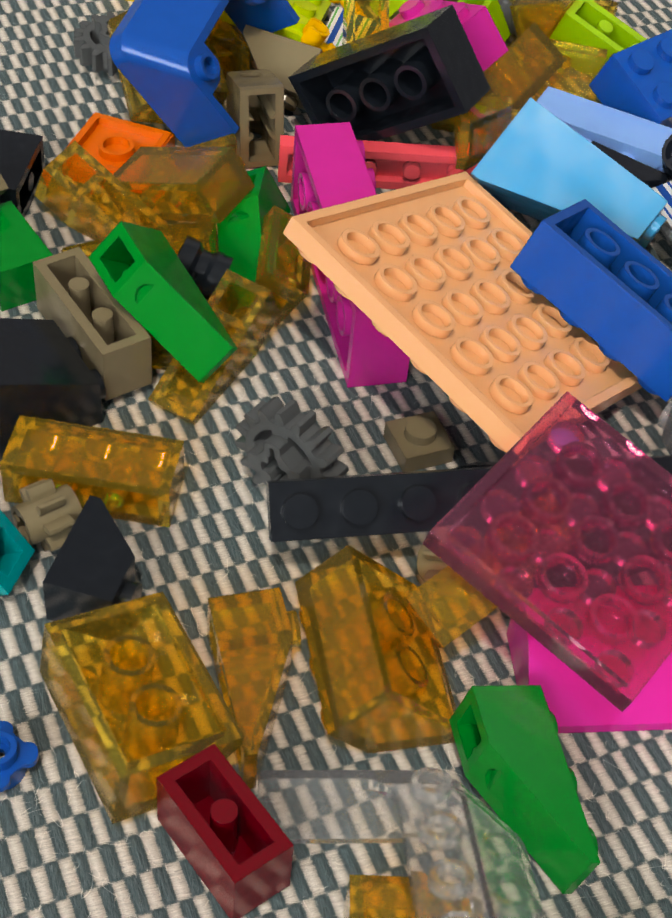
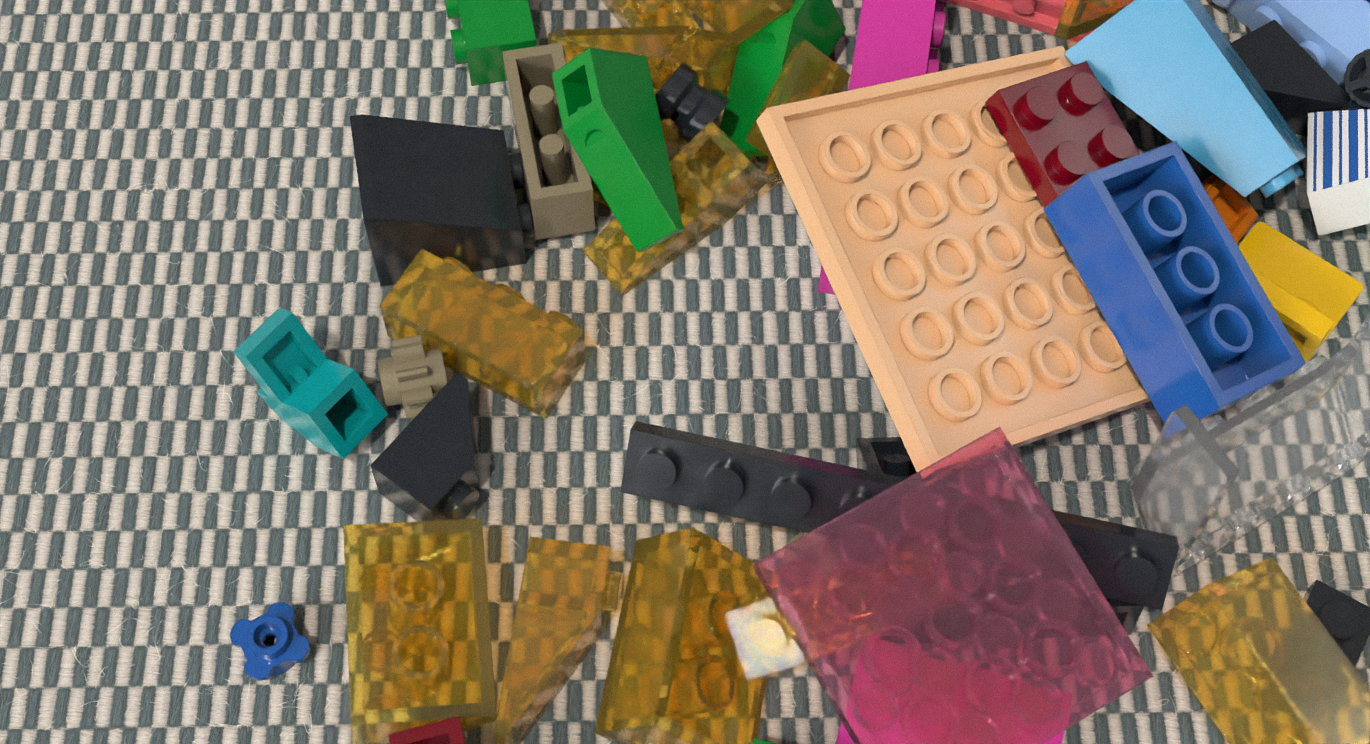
camera: 25 degrees right, 15 degrees up
(287, 443) = (690, 381): dark grey gear -> none
(418, 441) = (856, 395): dark tan plate -> none
(492, 216) = (1060, 128): none -> dark red plate

